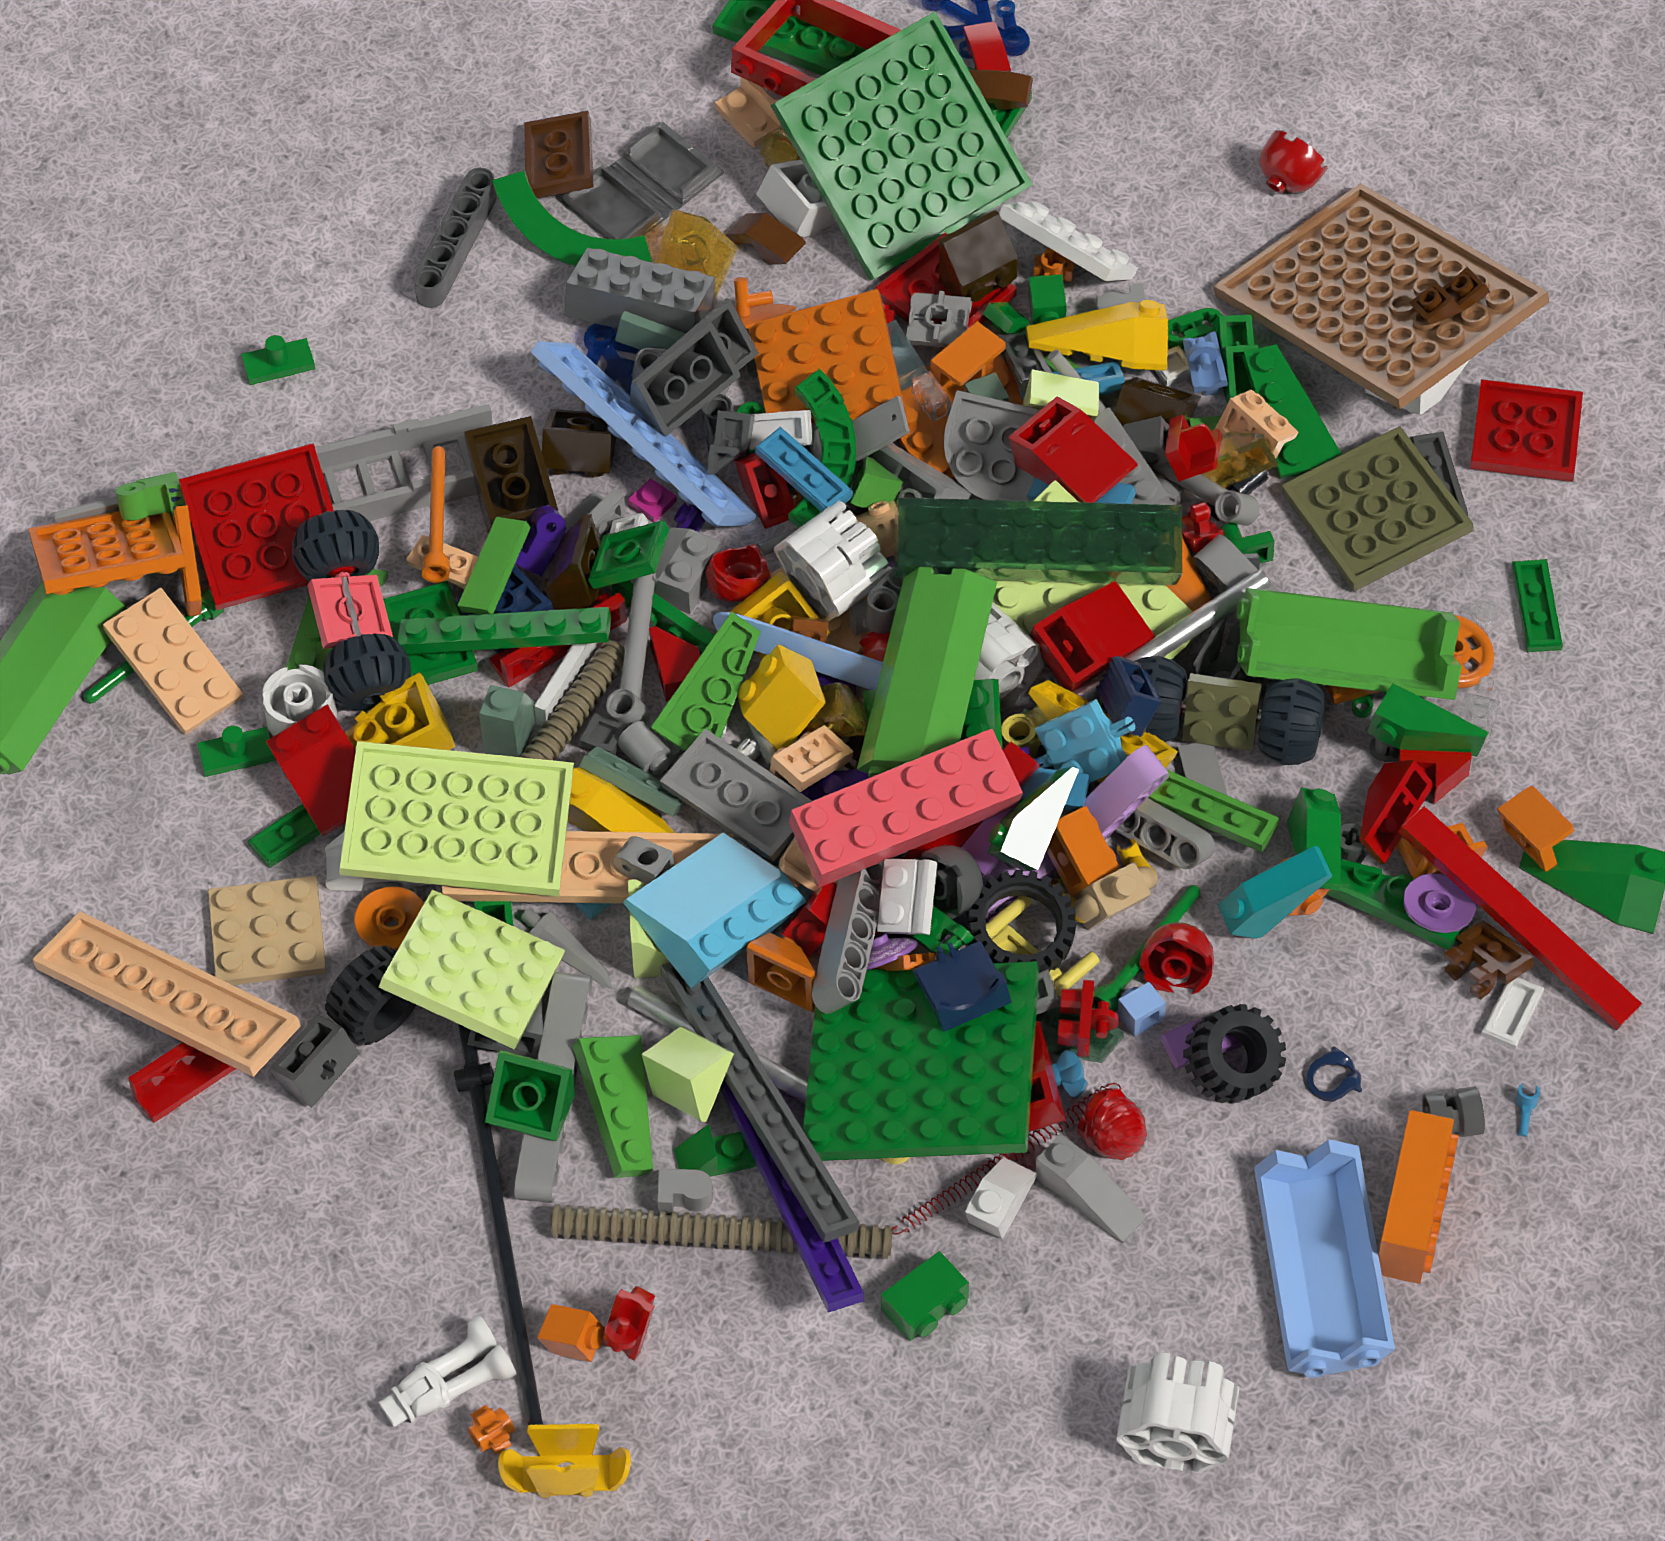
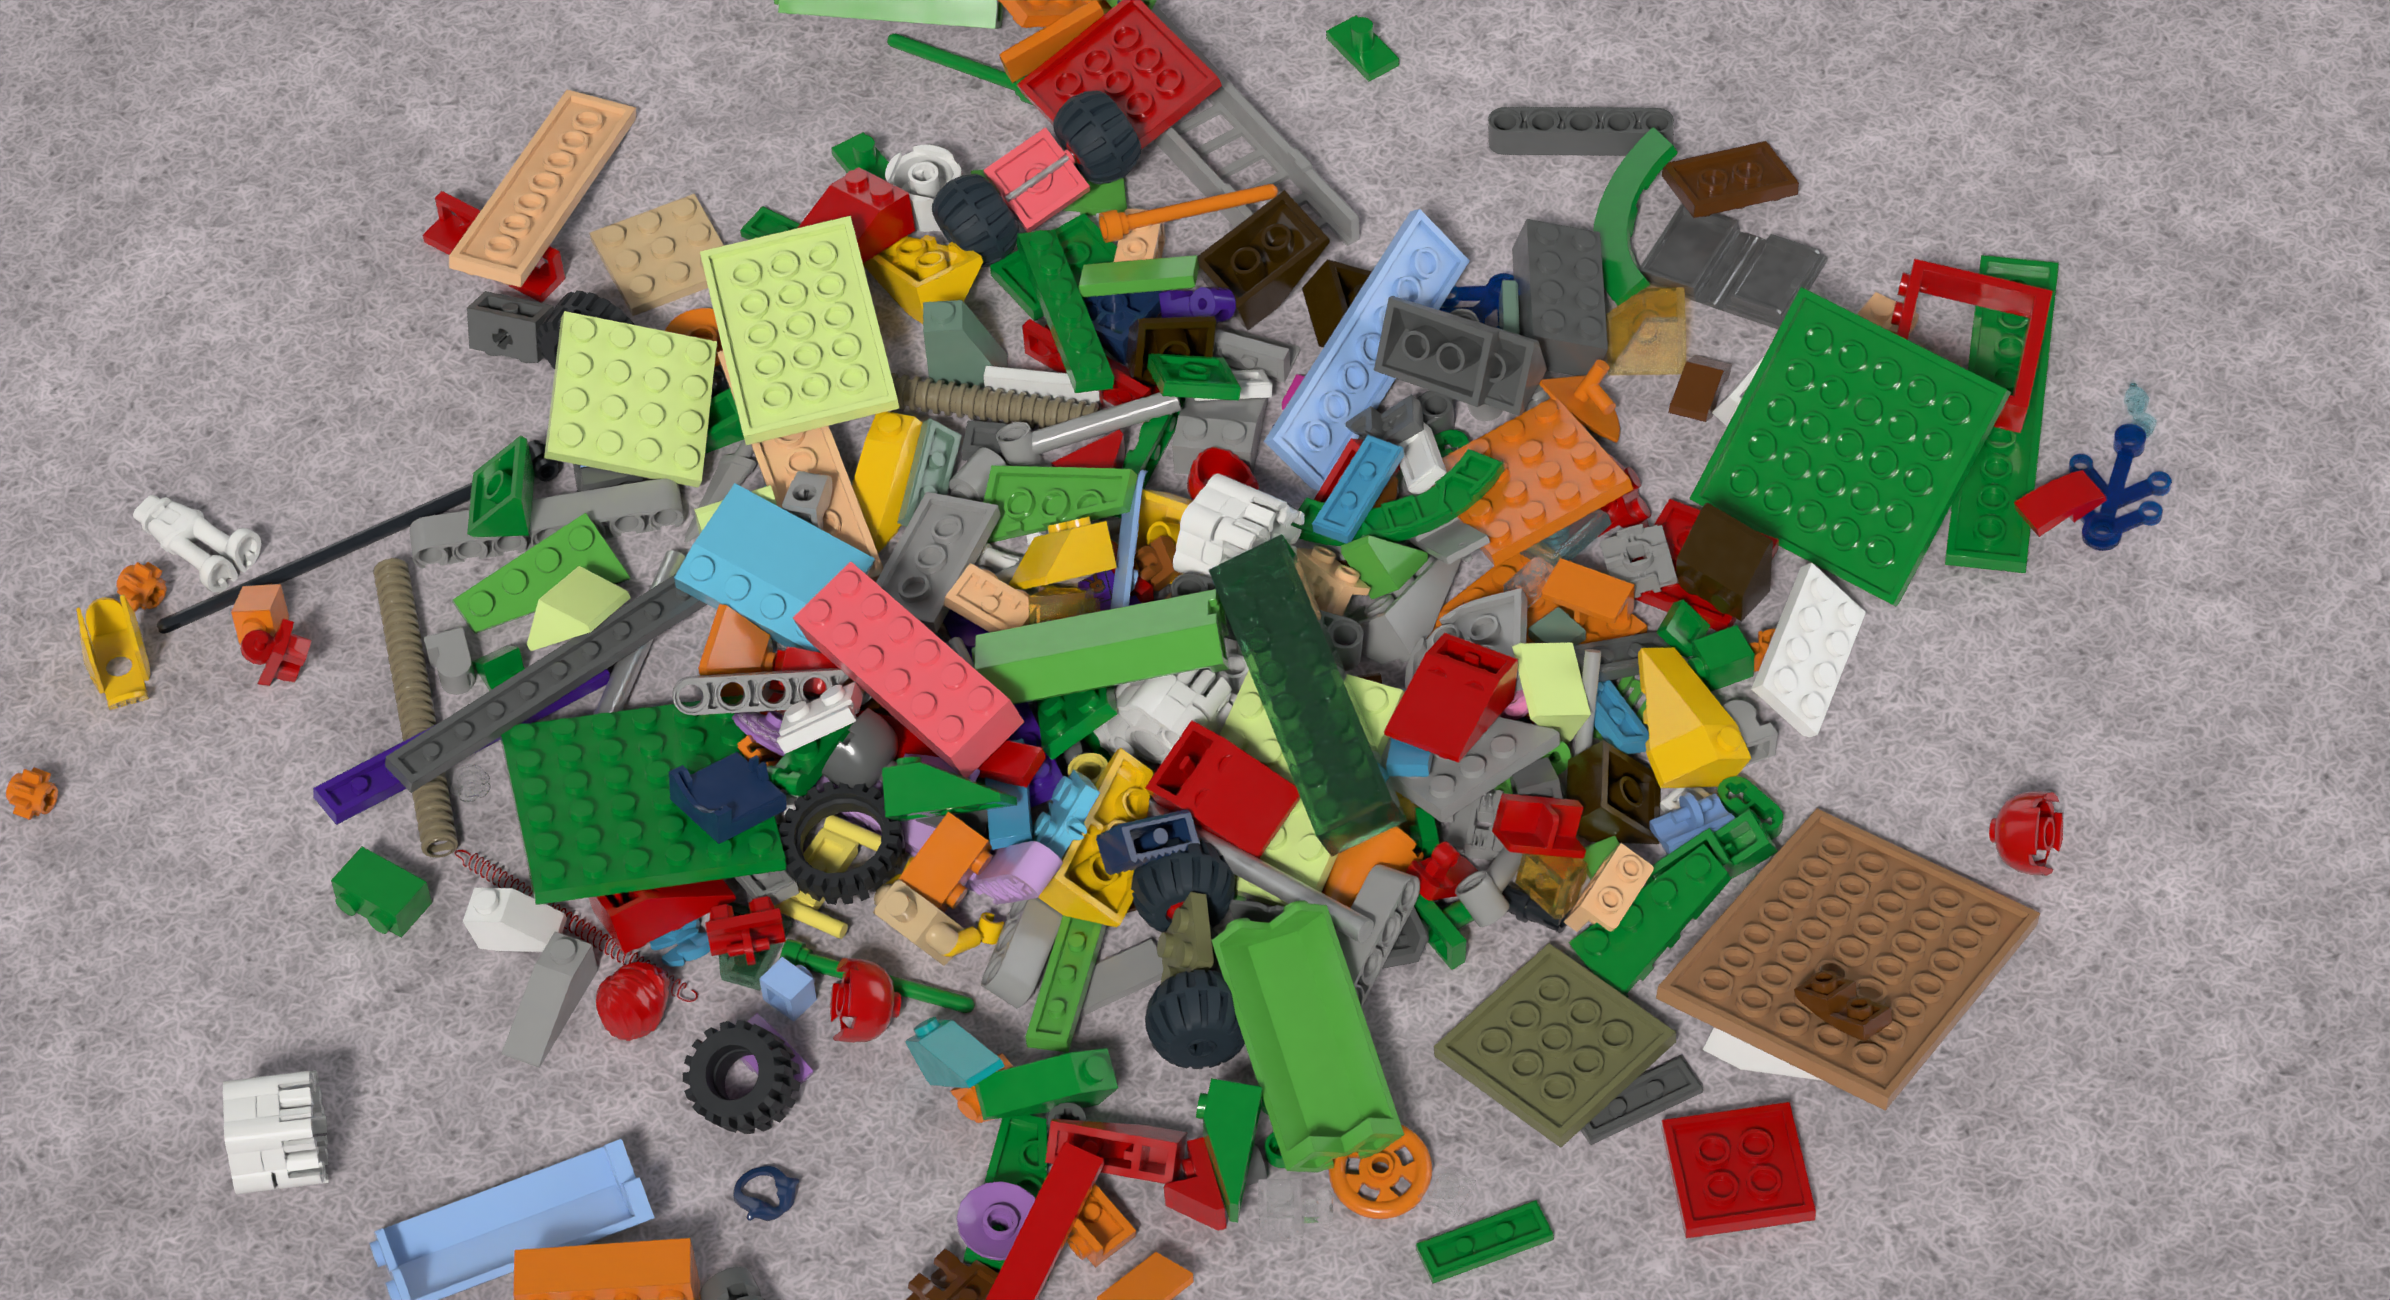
camera: 75 degrees right, 5 degrees down
(172, 661) = (946, 78): light nougat plate -> none
(1004, 88) = (1998, 521): reddish brown slope -> none

